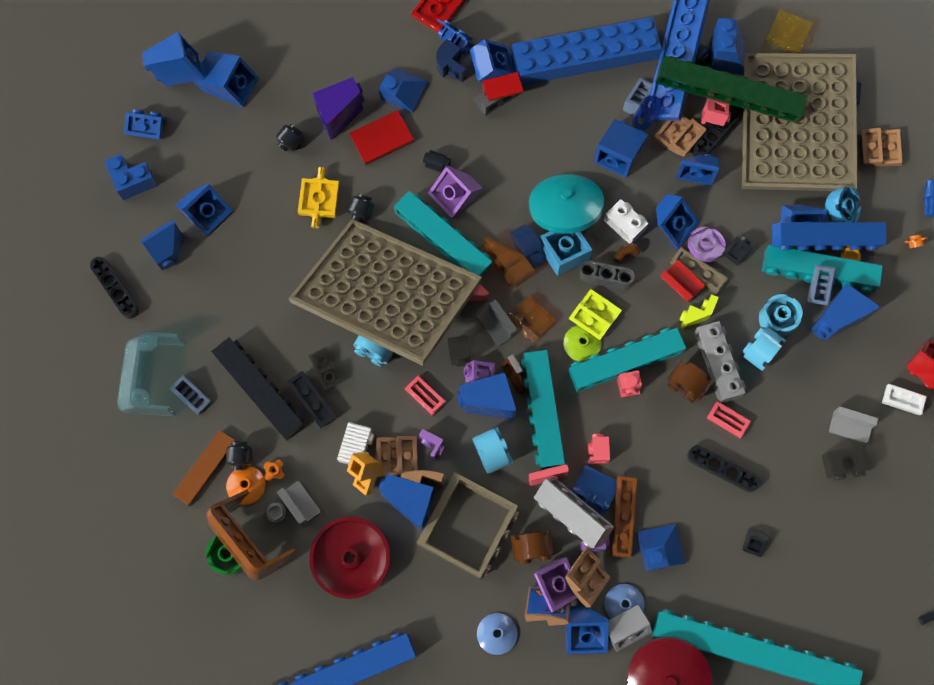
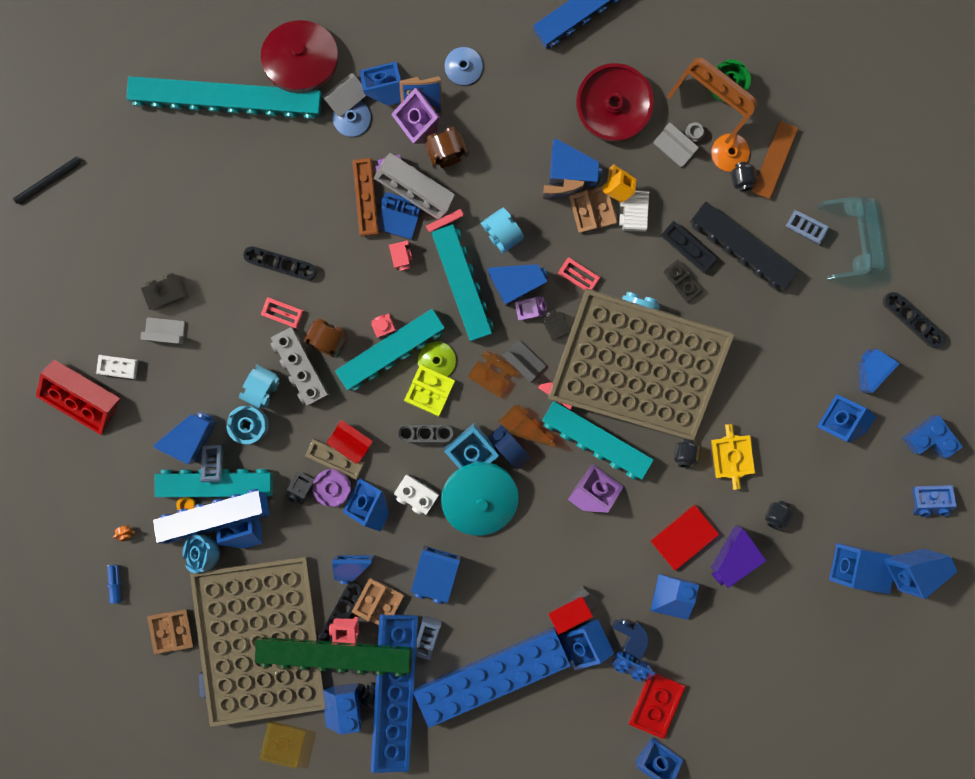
camera: 165 degrees right, 15 degrees up
(278, 474) = (702, 170): orange plate -> none
(429, 439) = (563, 231): medium lavender bracket -> none
(436, 161) = (620, 520): black brick -> none
(439, 510) = (482, 139): dark tan window -> none
(513, 370) = (498, 317): reddish brown plate -> none
(587, 577) = (389, 129): medium nougat slope -> none
(626, 249) = (409, 466): reddish brown arm -> none
(648, 114) = (414, 616): clear blue plate -> none
(660, 547) = (326, 175): blue slope -> none
(695, 315) = (334, 408): neon yellow slope -> none
(755, 542) = (239, 200): black slope -> none

